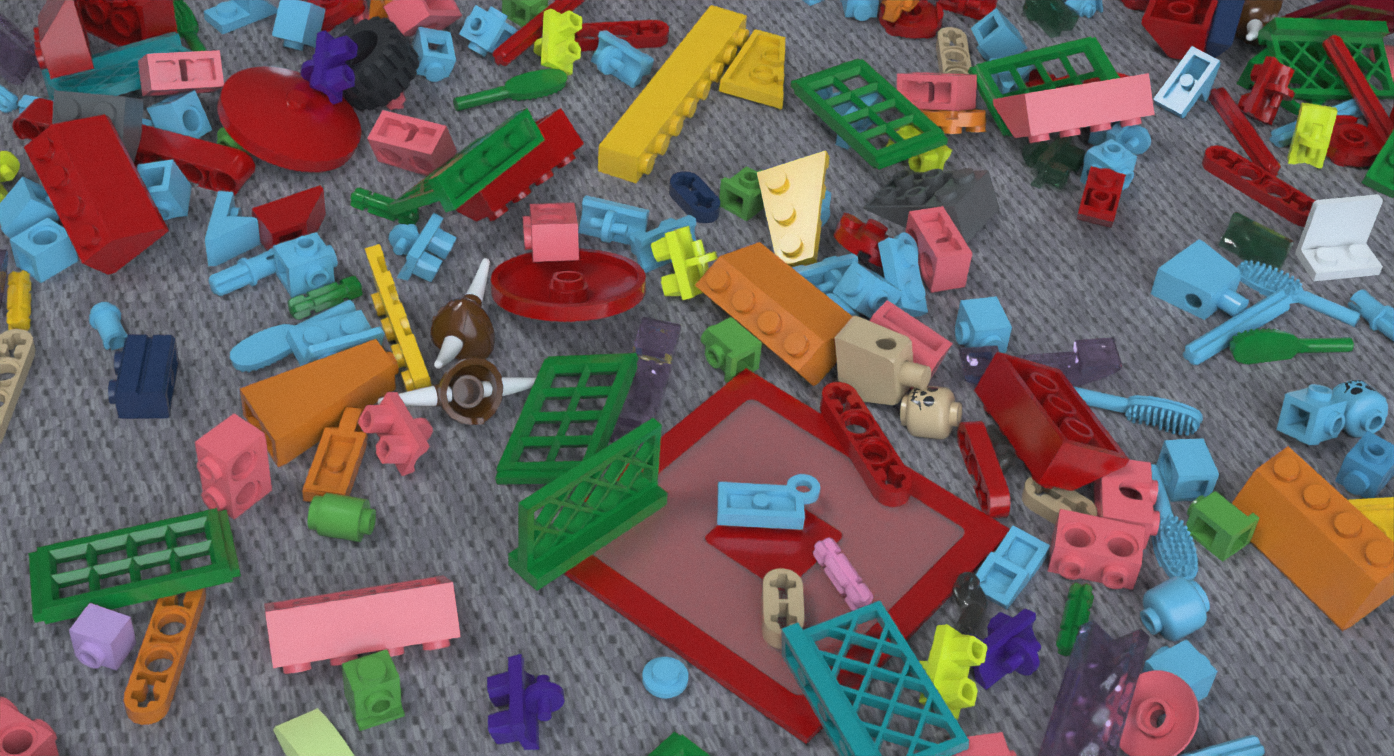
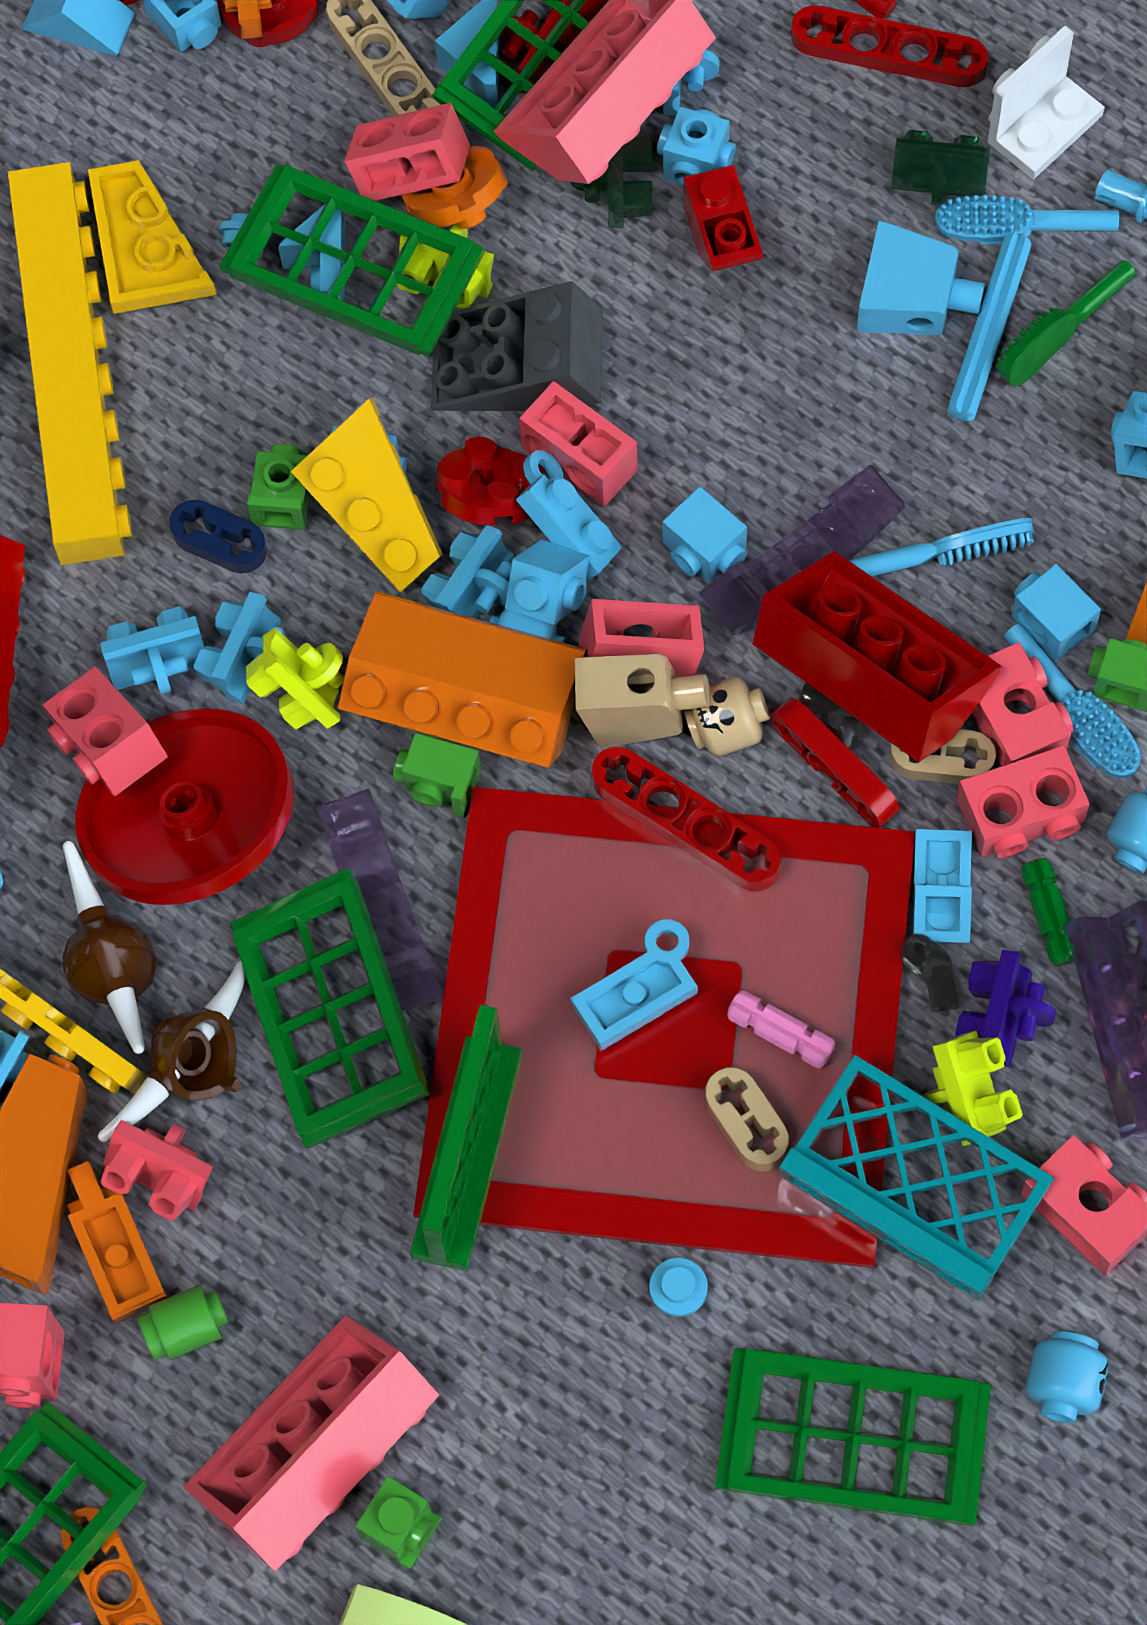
camera: 25 degrees left, 25 degrees up
(528, 701) = (543, 1410): dark purple hips -> none

